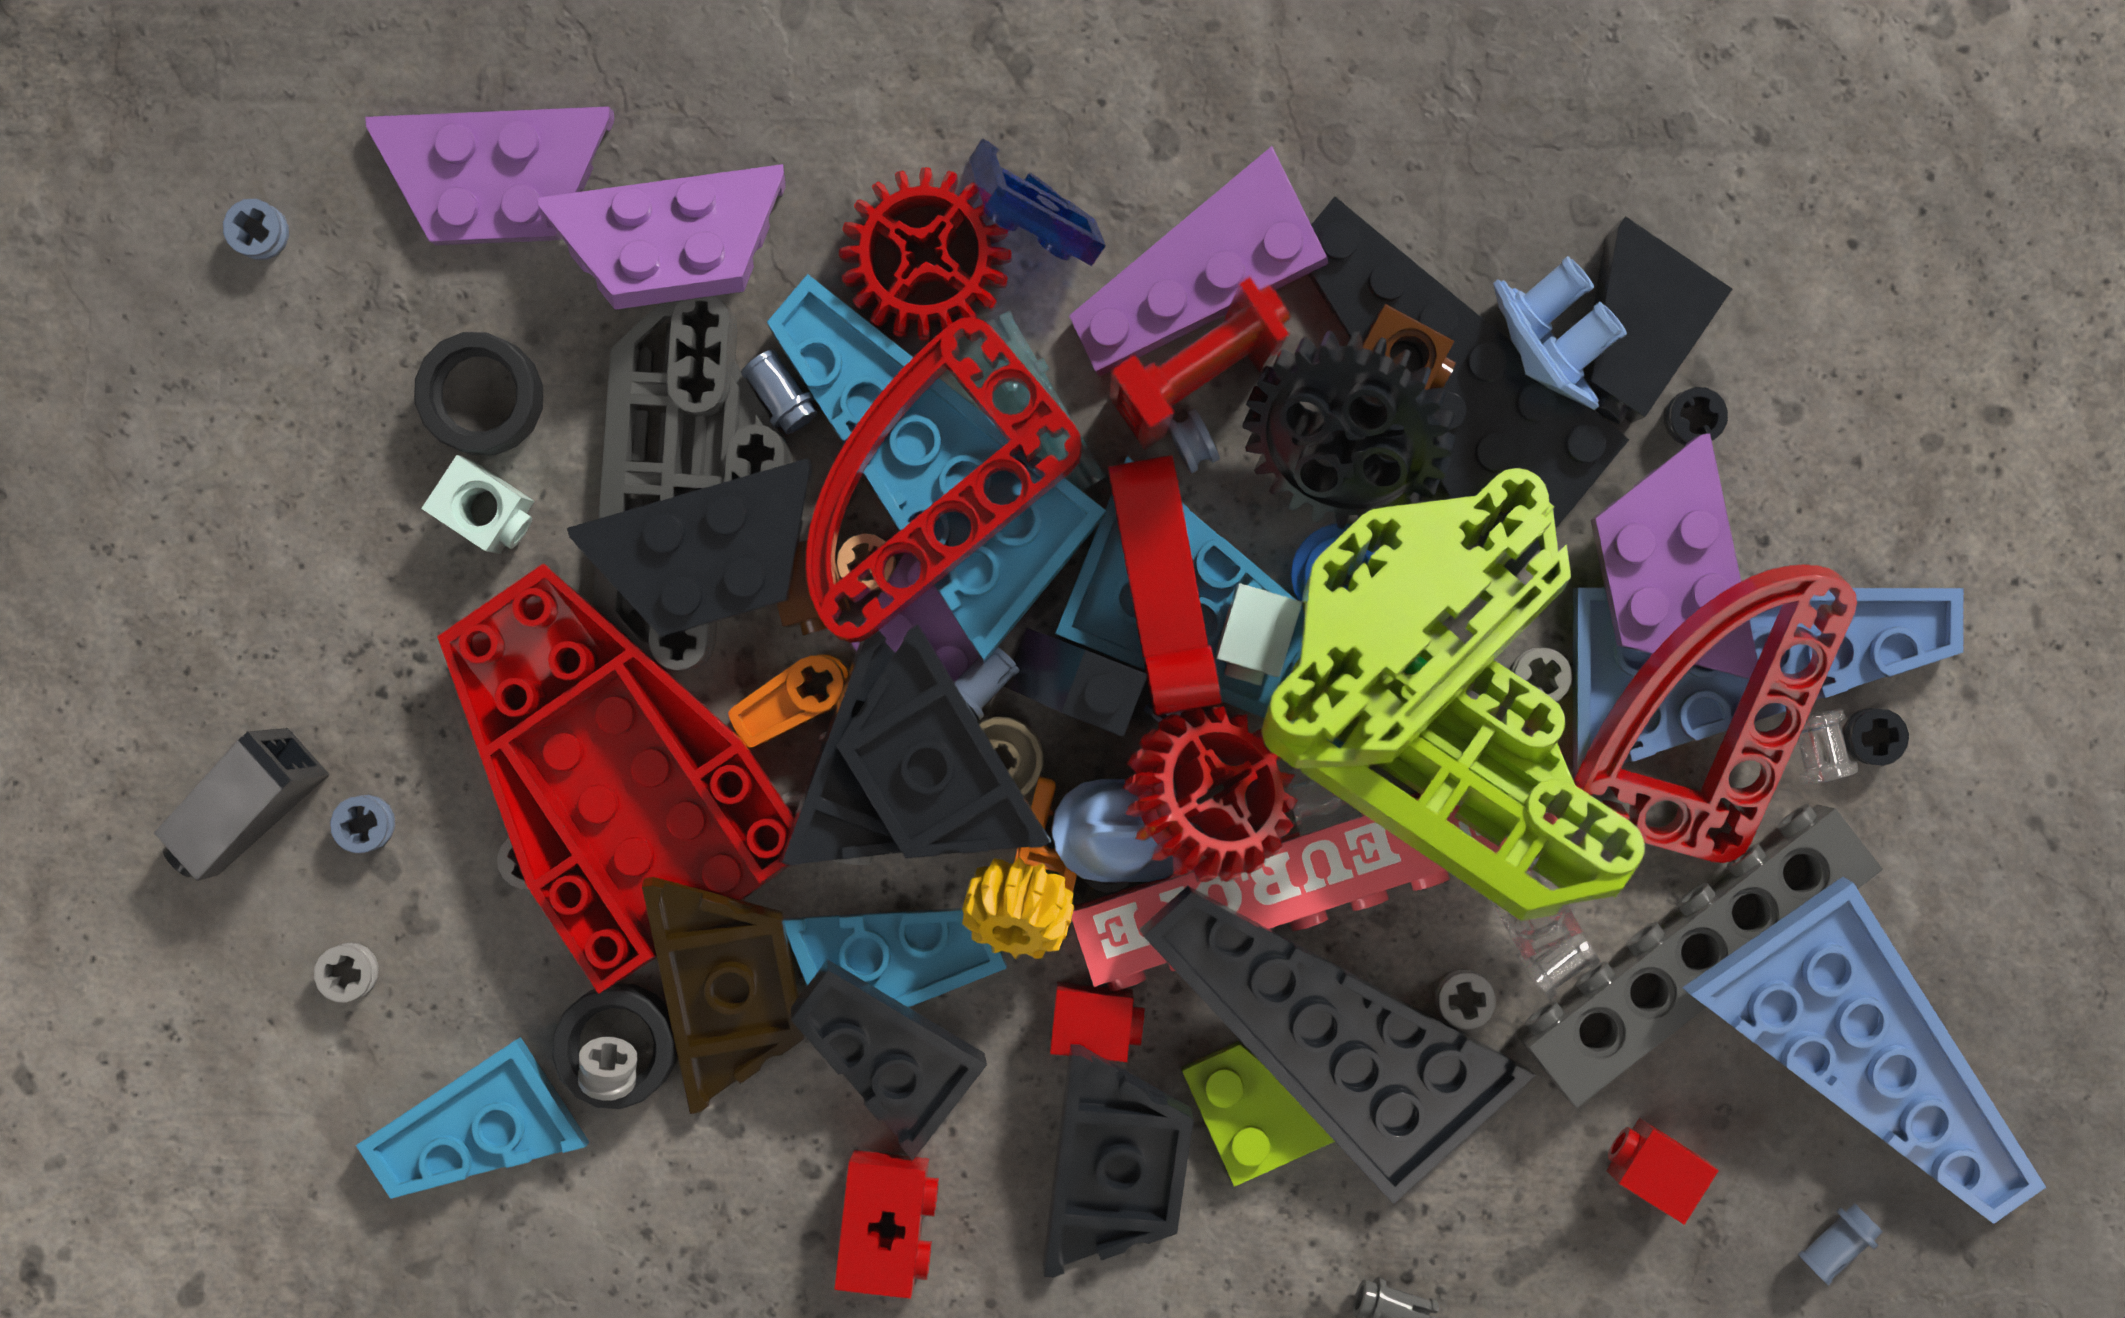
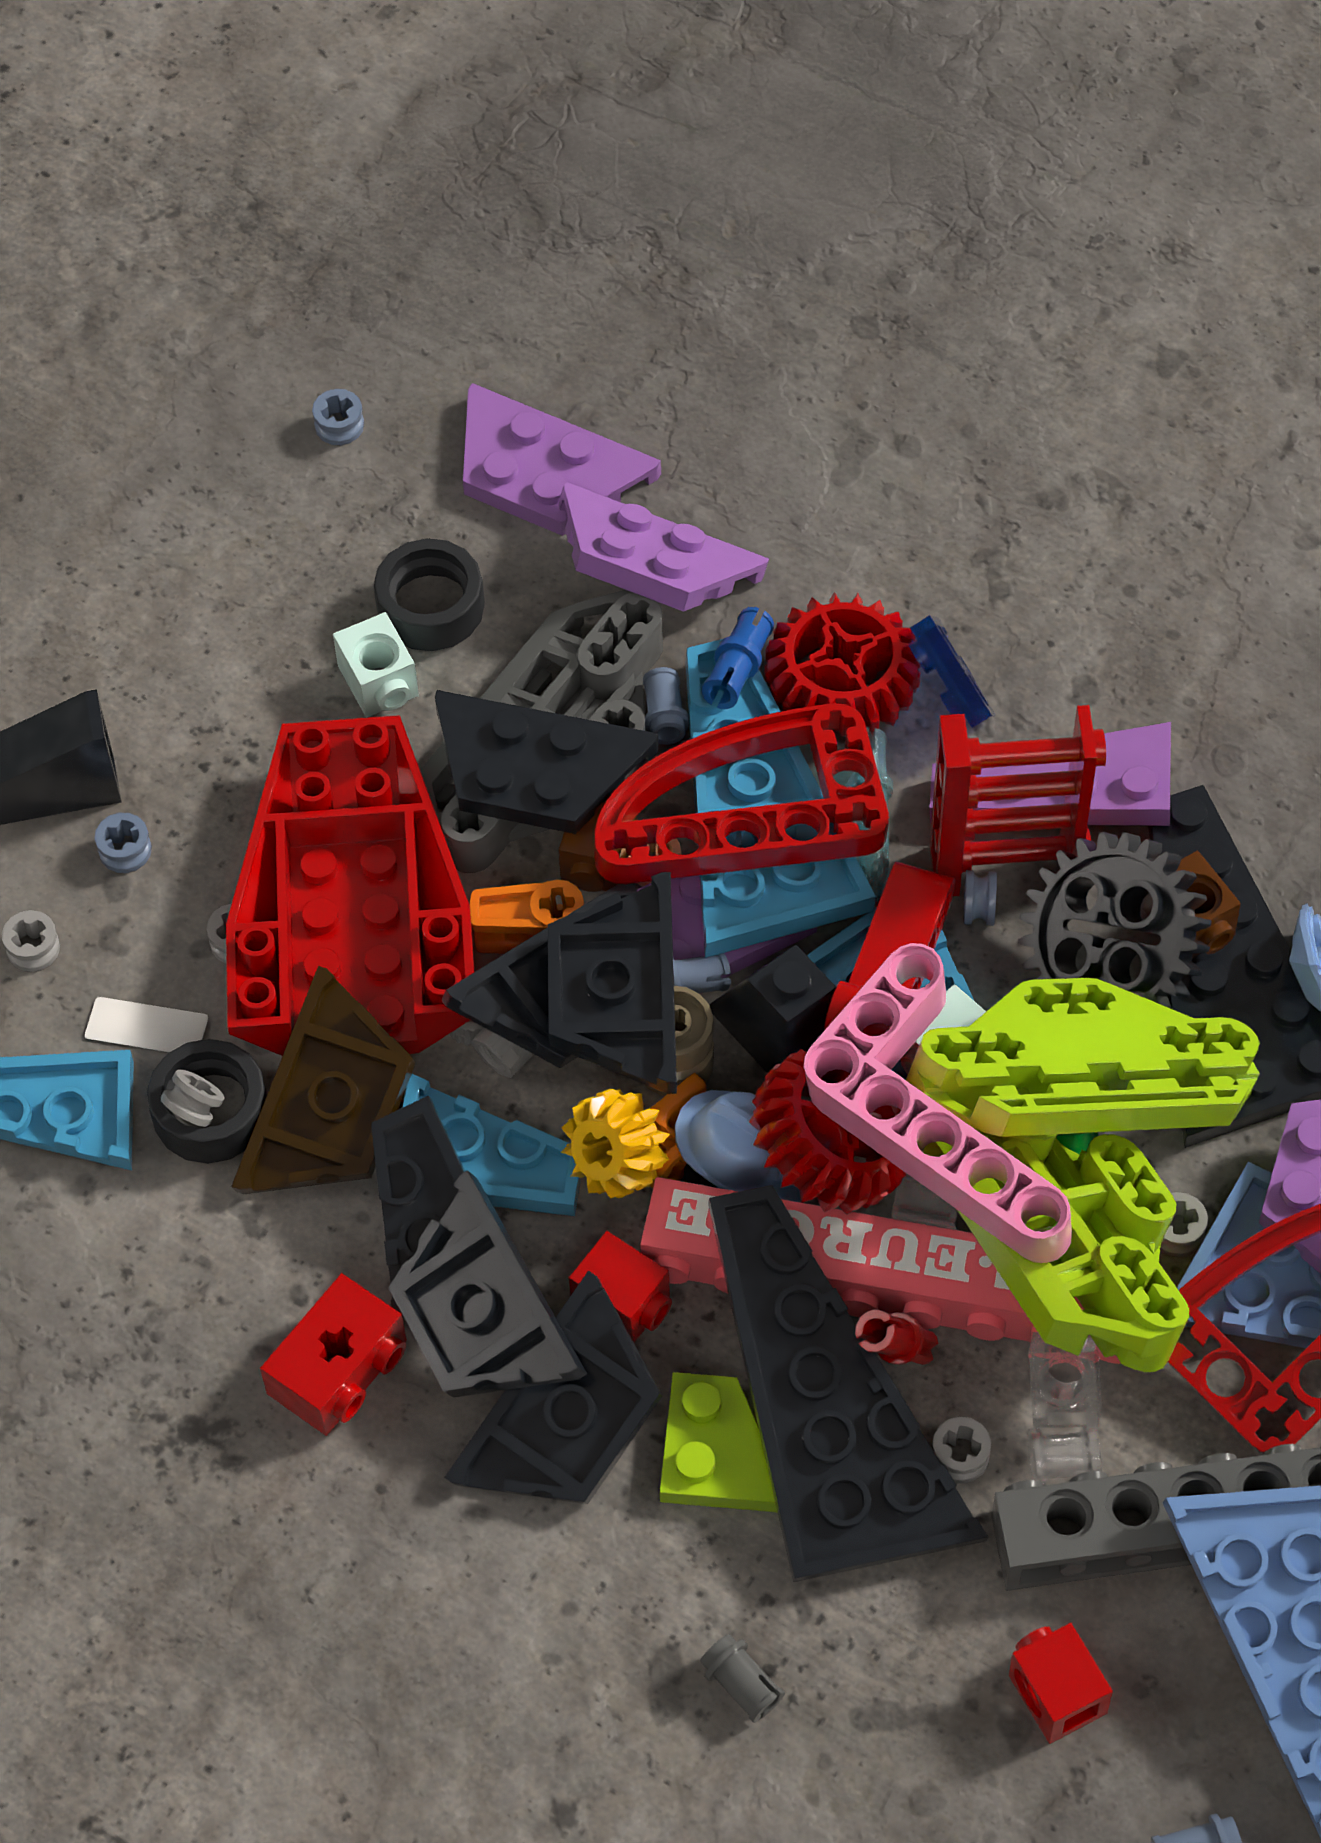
camera: 30 degrees right, 30 degrees down
(507, 990) = (143, 1025): none -> white sticker
(828, 316) = (738, 658): none -> blue pin
(989, 1128) = (479, 1305): none -> black wing
(1313, 787) = (921, 1118): none -> bright pink beam
(1369, 952) = (895, 1337): none -> red axle

